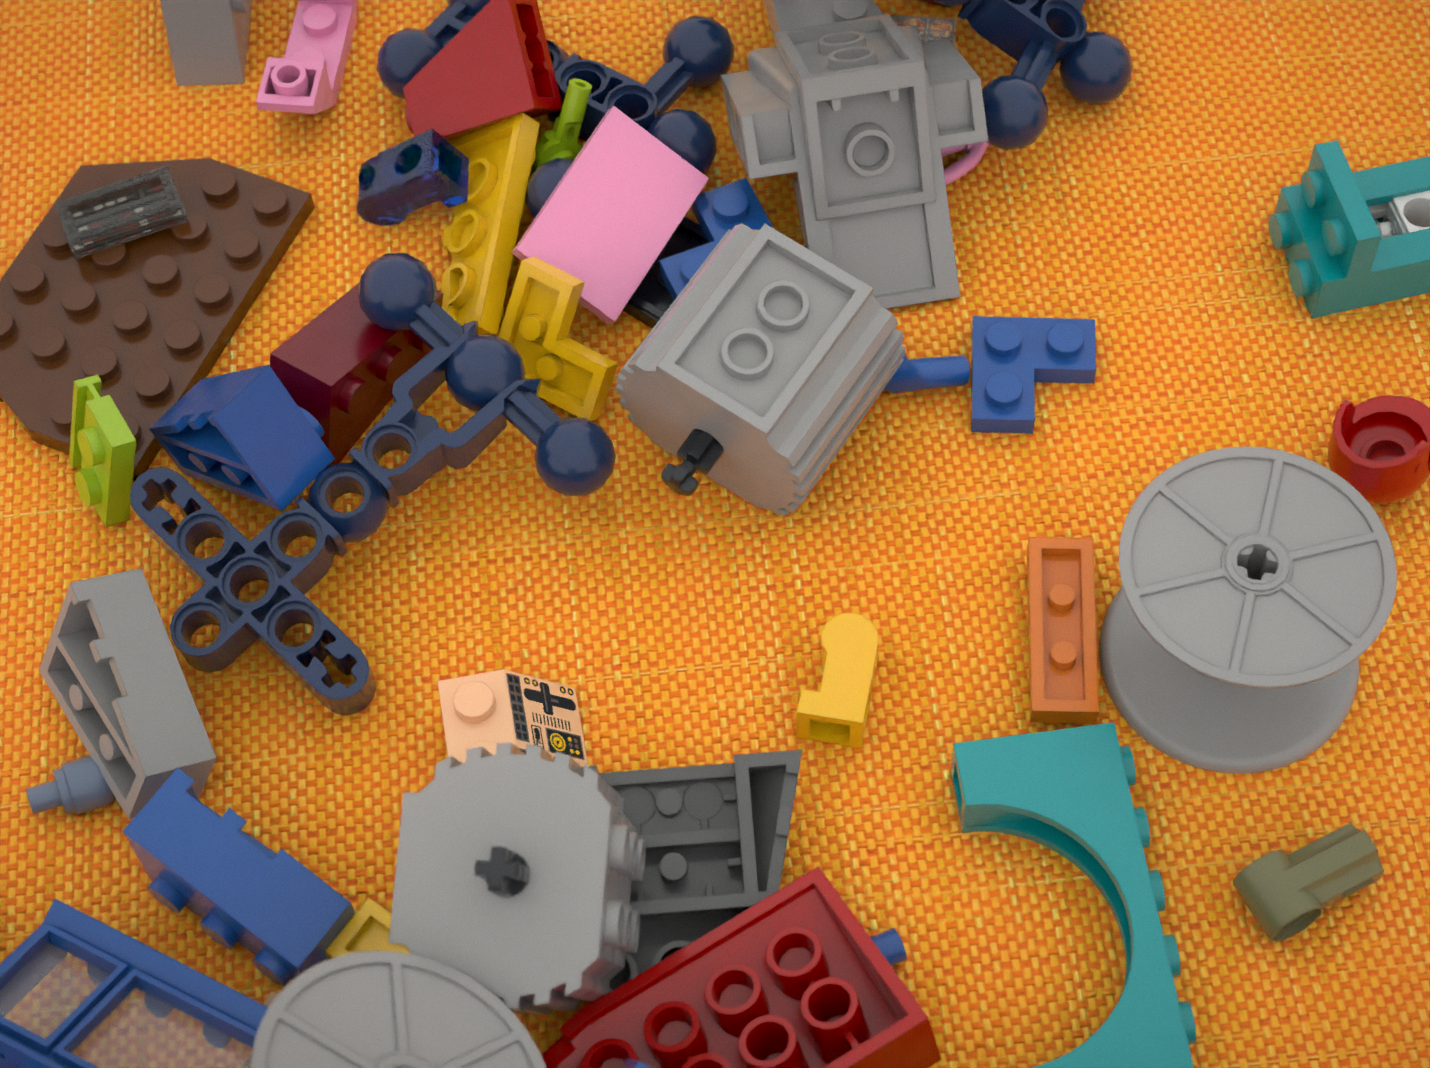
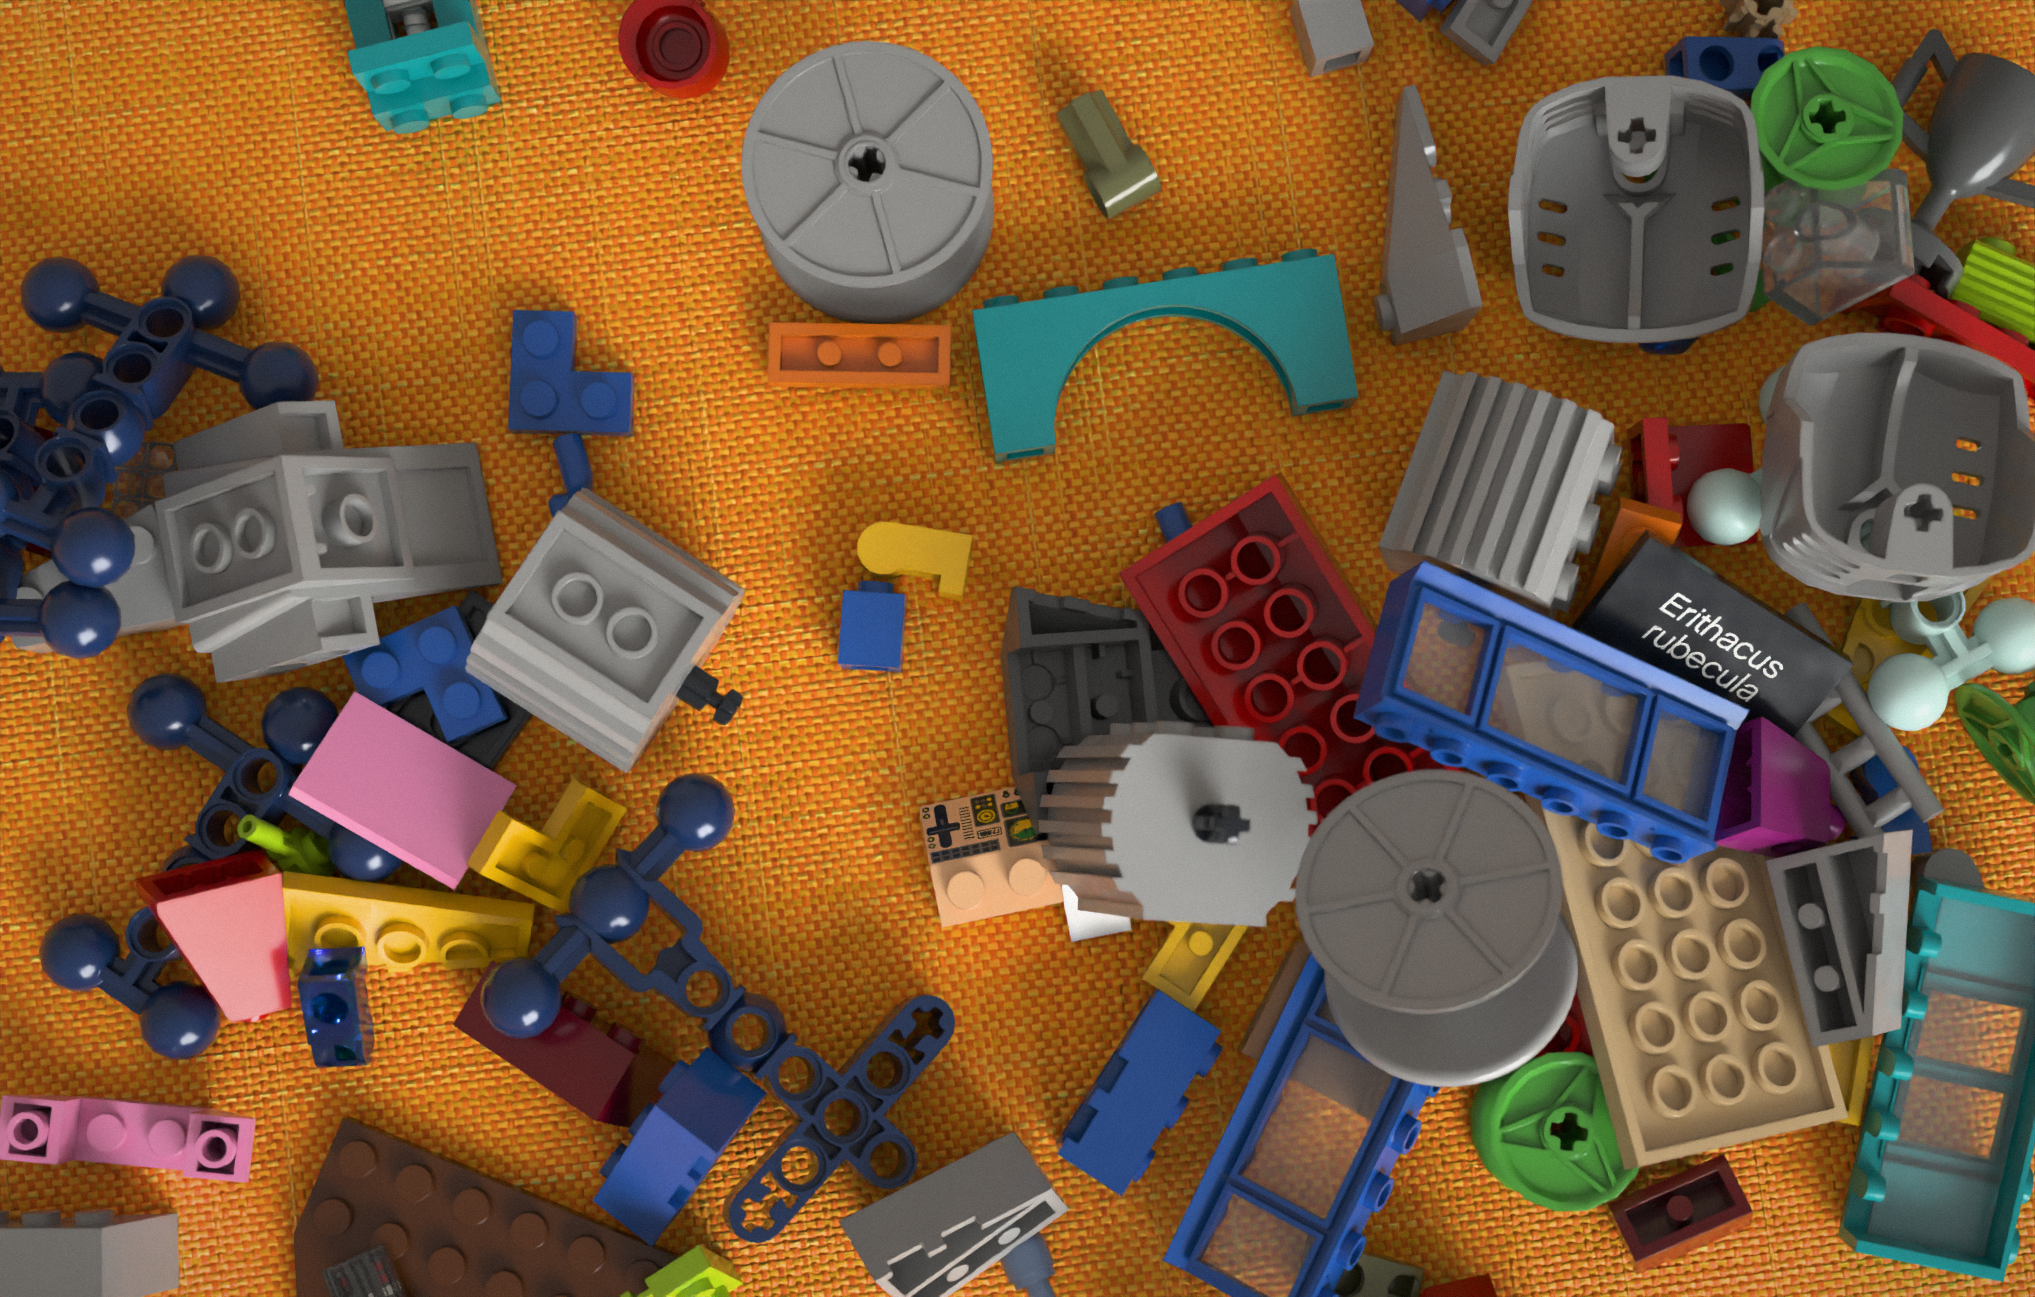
camera: 95 degrees left, 25 degrees up
(764, 636) = (872, 628): none -> blue brick

